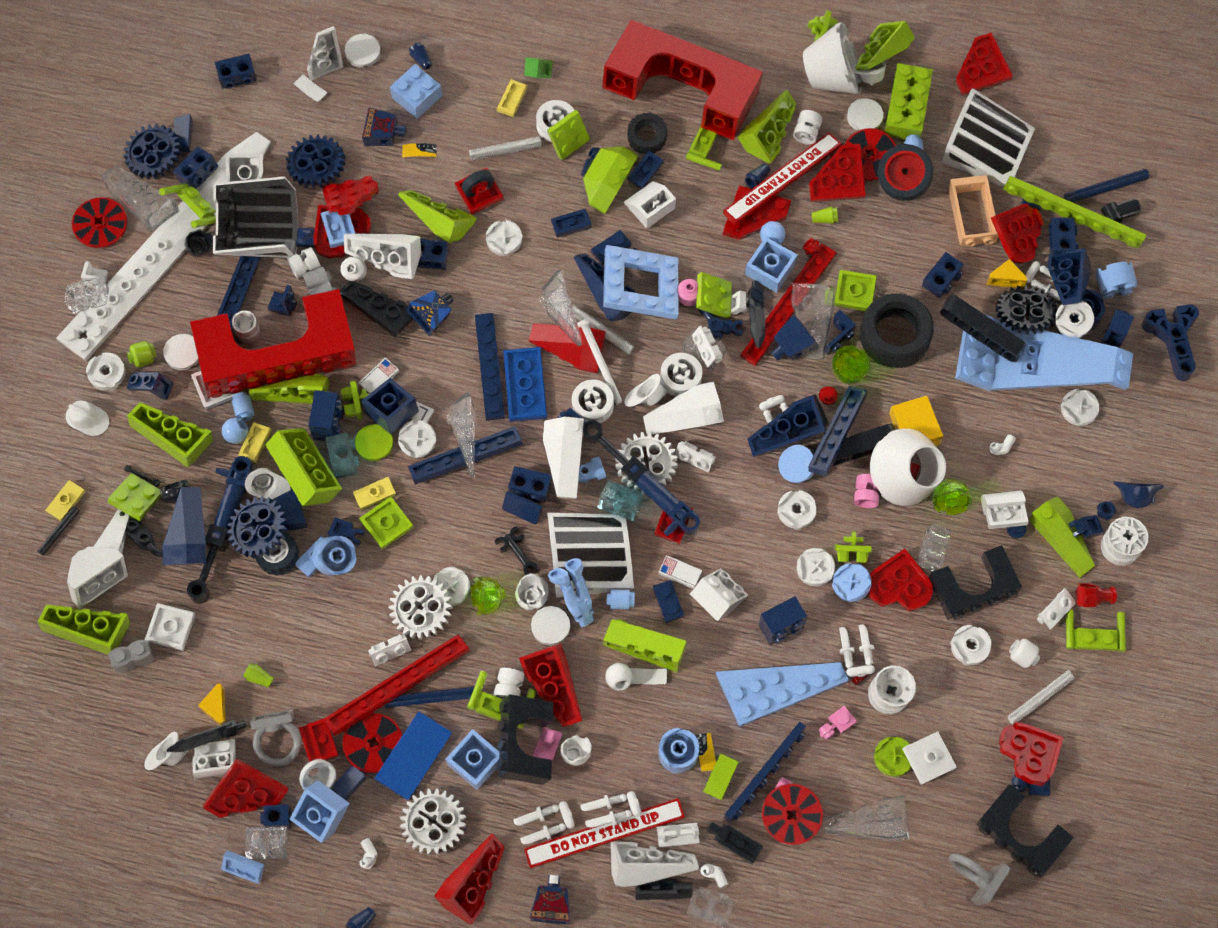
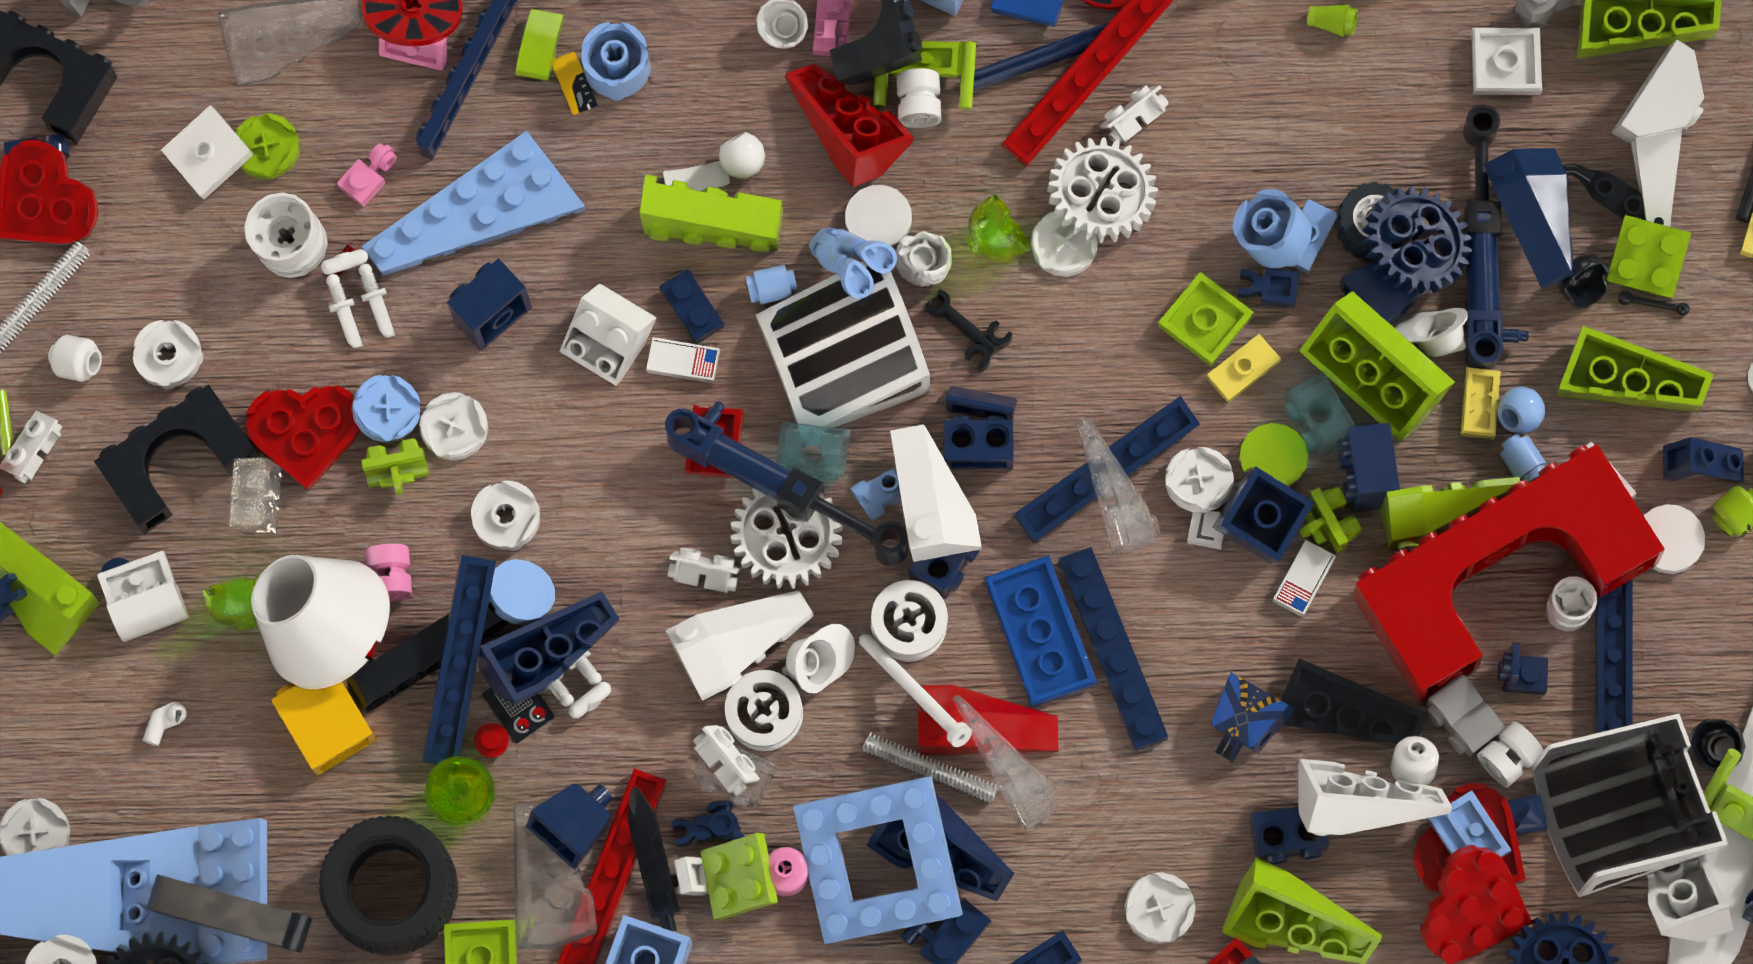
camera: 170 degrees right, 5 degrees up
(845, 324) = (490, 883): dark blue bracket -> none

